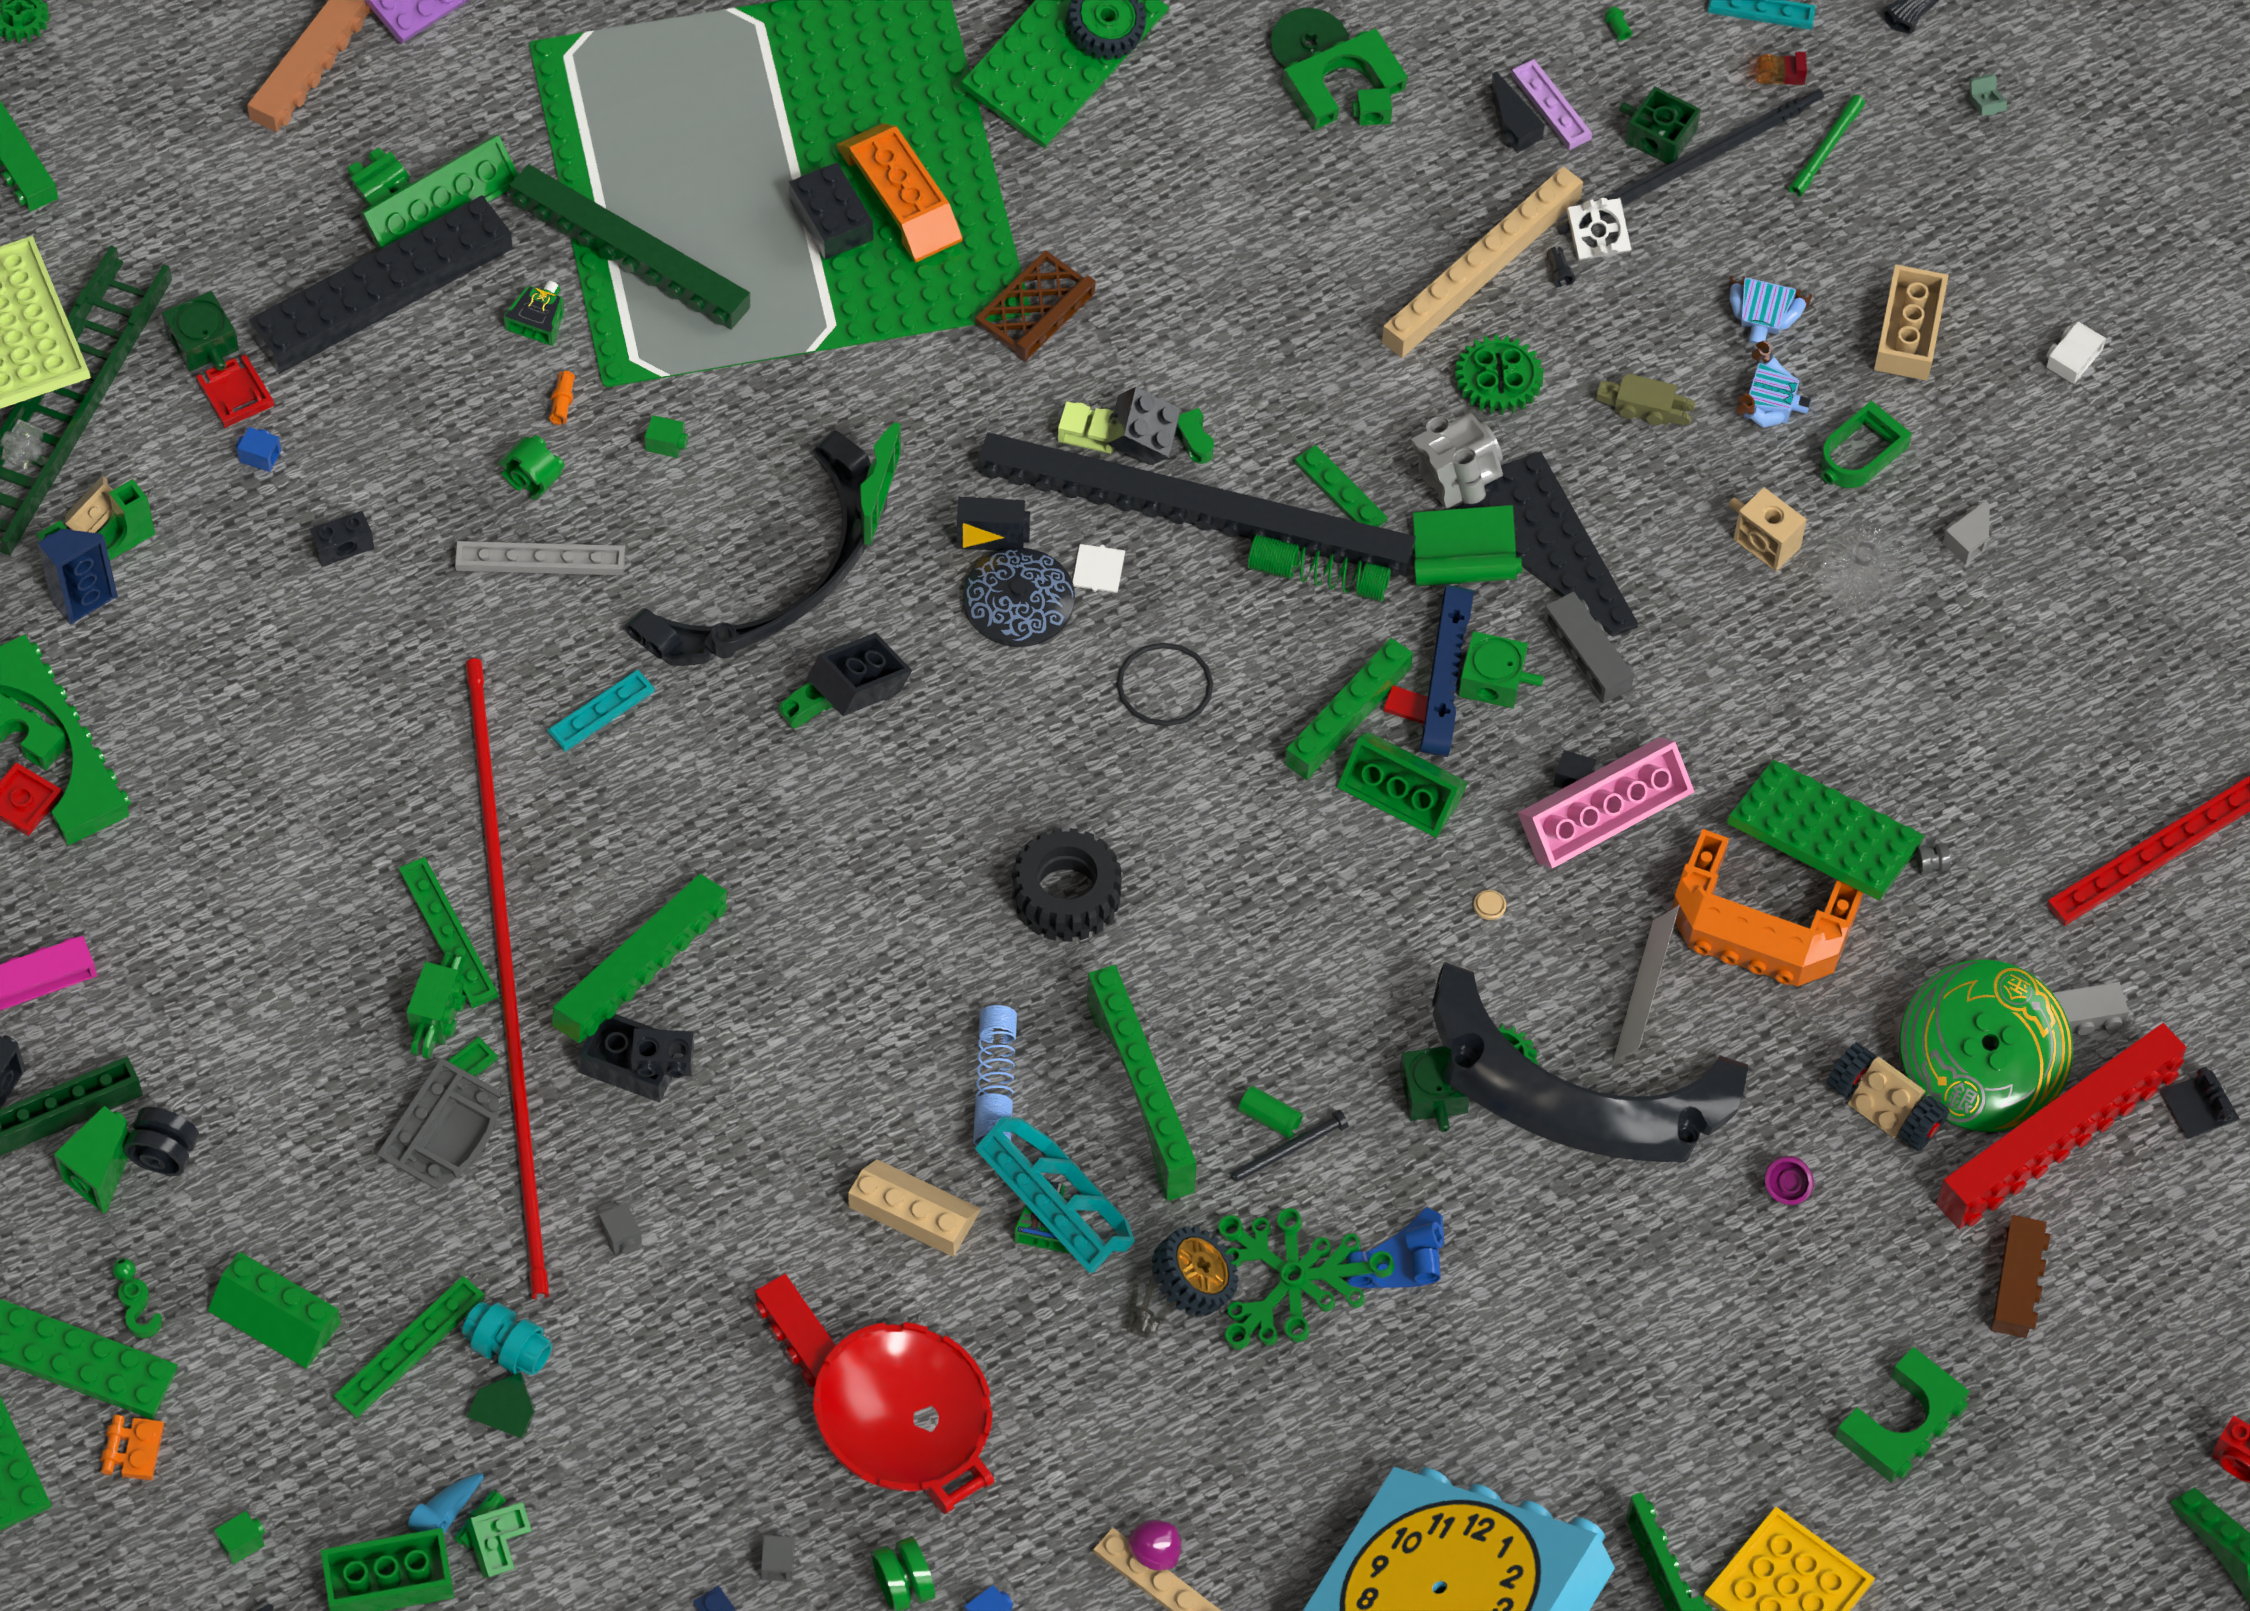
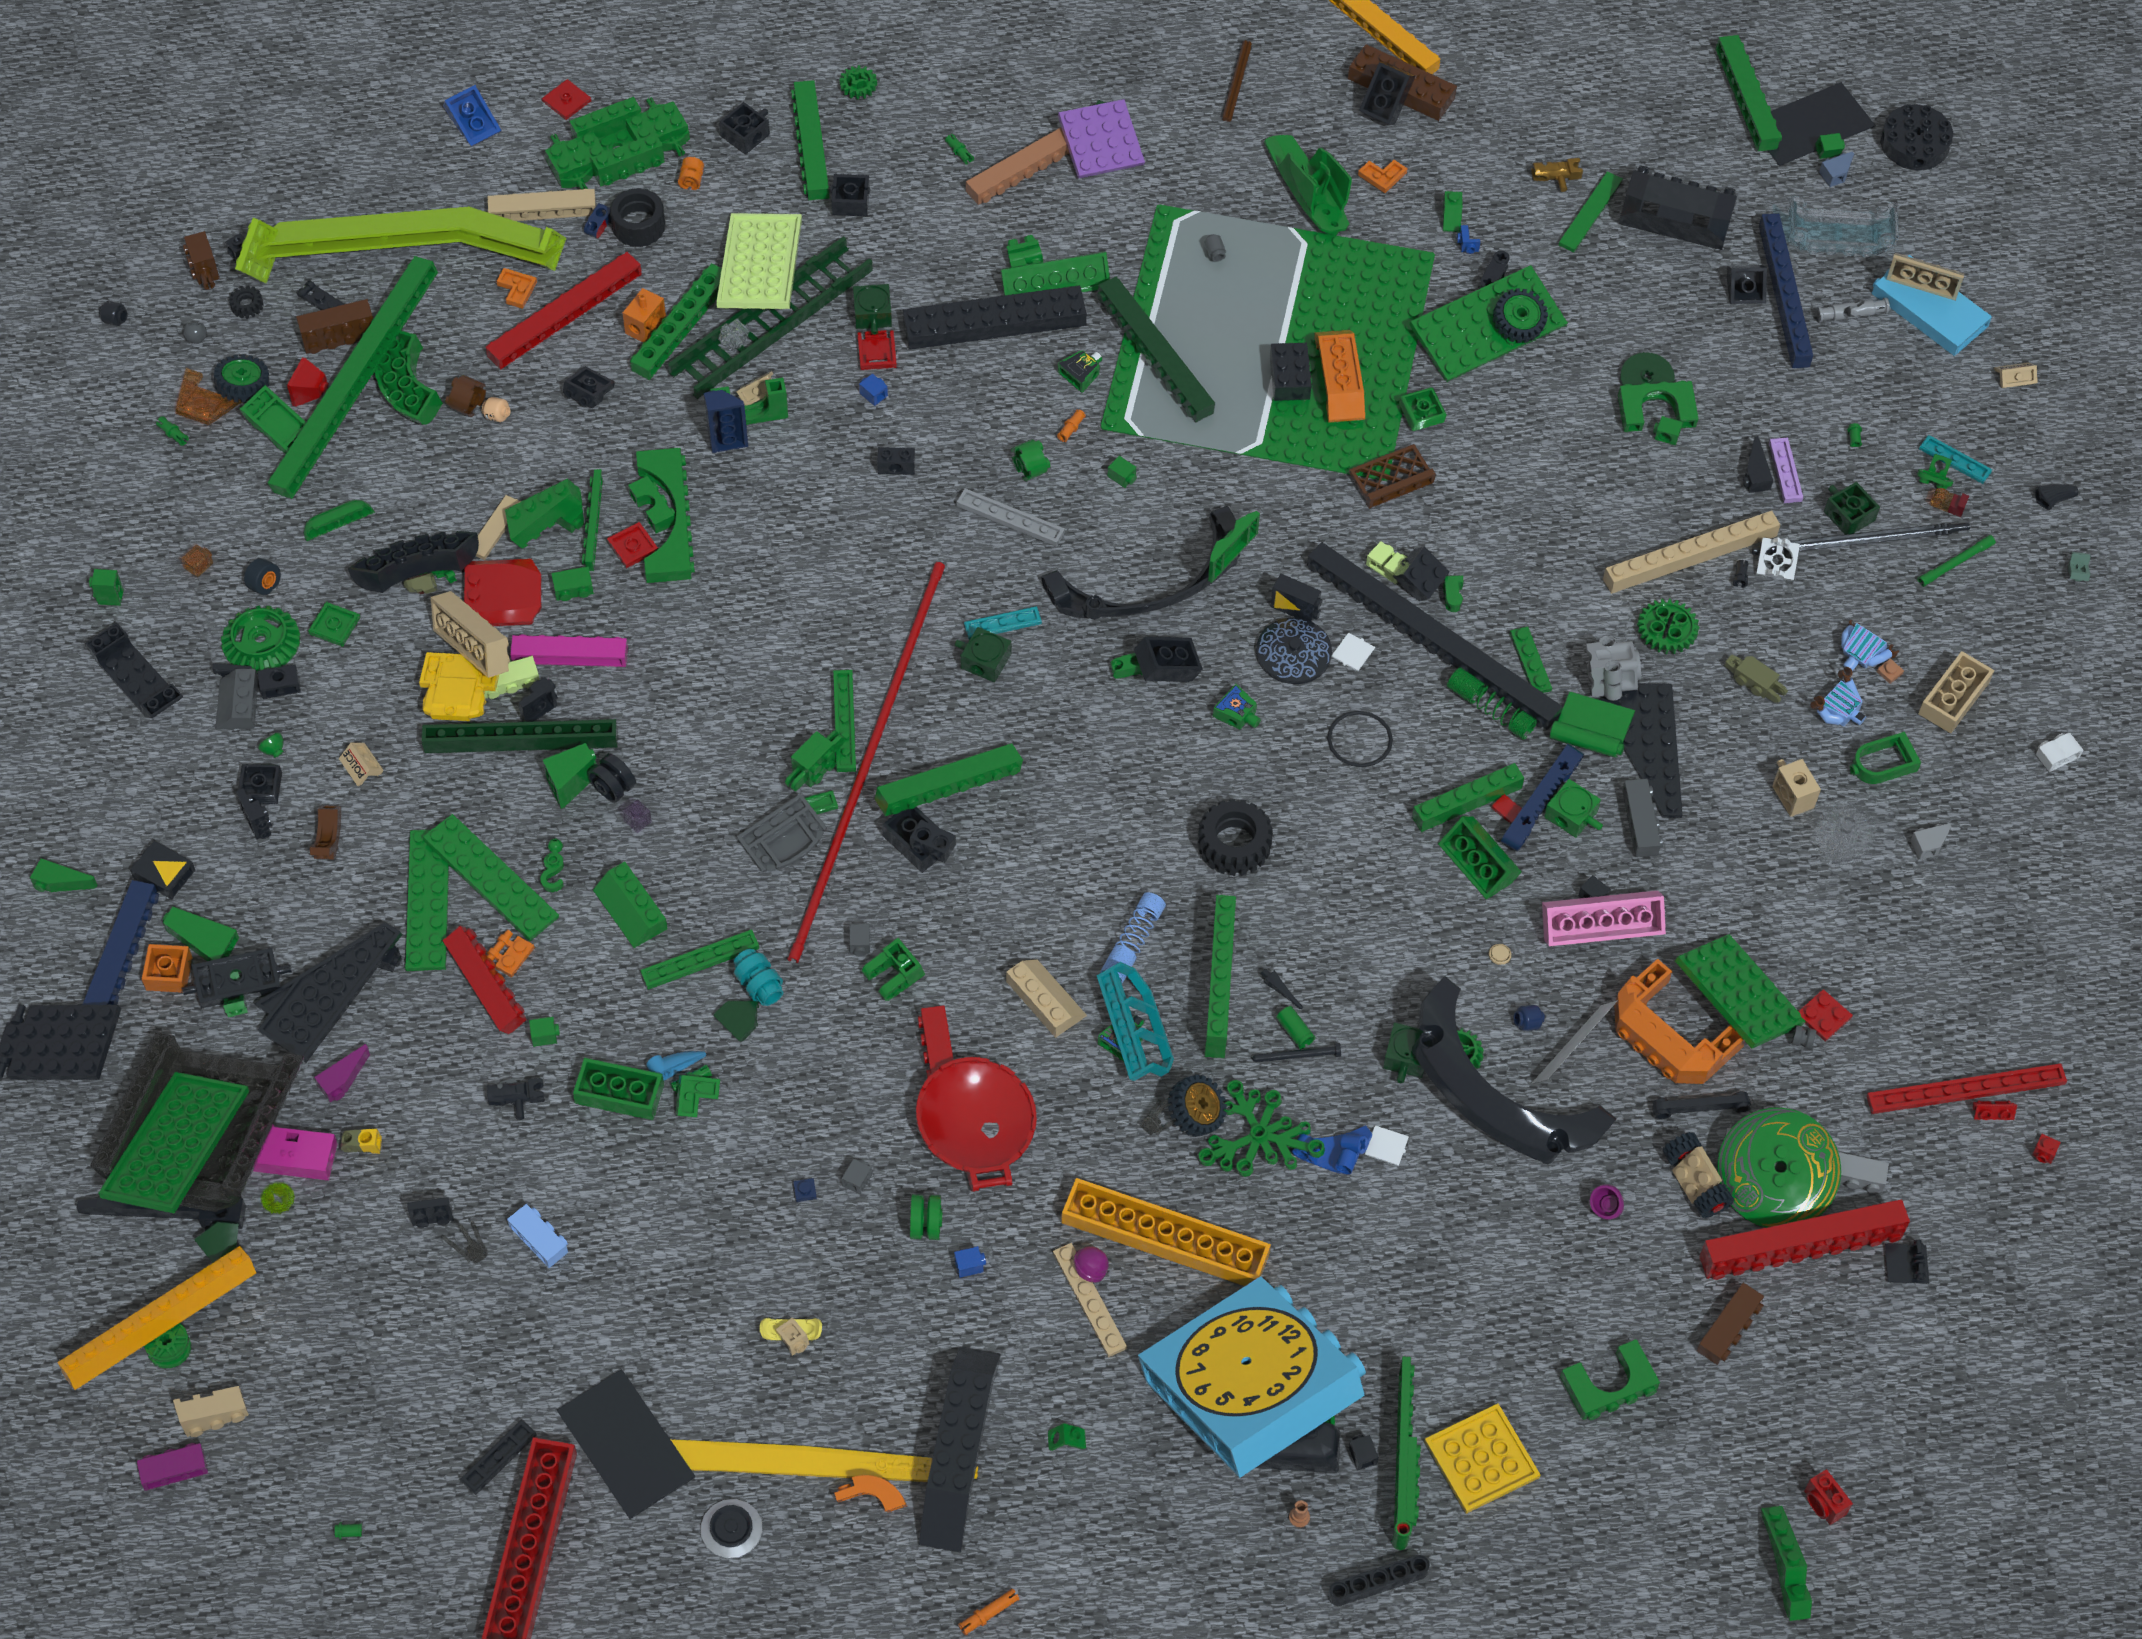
camera: 25 degrees right, 0 degrees up
(91, 182) = (850, 195): none -> black brick
(119, 1498) = (485, 980): none -> red brick
(211, 61) = (959, 148): none -> green pin
(222, 1181) = (637, 816): none -> clear purple brick
(600, 763) = (985, 654): none -> dark green piece
(642, 74) = (1215, 247): none -> dark grey brick
(696, 1236) = (904, 963): none -> green brick
(982, 707) = (1237, 709): none -> green torso
(1033, 197) = (1422, 409): none -> green brick
(1214, 1062) = (1274, 981): none -> black piece
(1234, 1462) = (1165, 1233): none -> light orange brick
(1466, 1222) = (1387, 1145): none -> white piece
(1569, 975) = (1528, 1017): none -> dark blue head
(1741, 42) = (1942, 481): none -> green bracket
(1800, 1026) = (1739, 1101): none -> black piece
(1812, 326) = (1890, 671): none -> nougat plate
(1944, 818) = (1825, 1015): none -> red plate
(2221, 856) = (1998, 1111): none -> red hinge

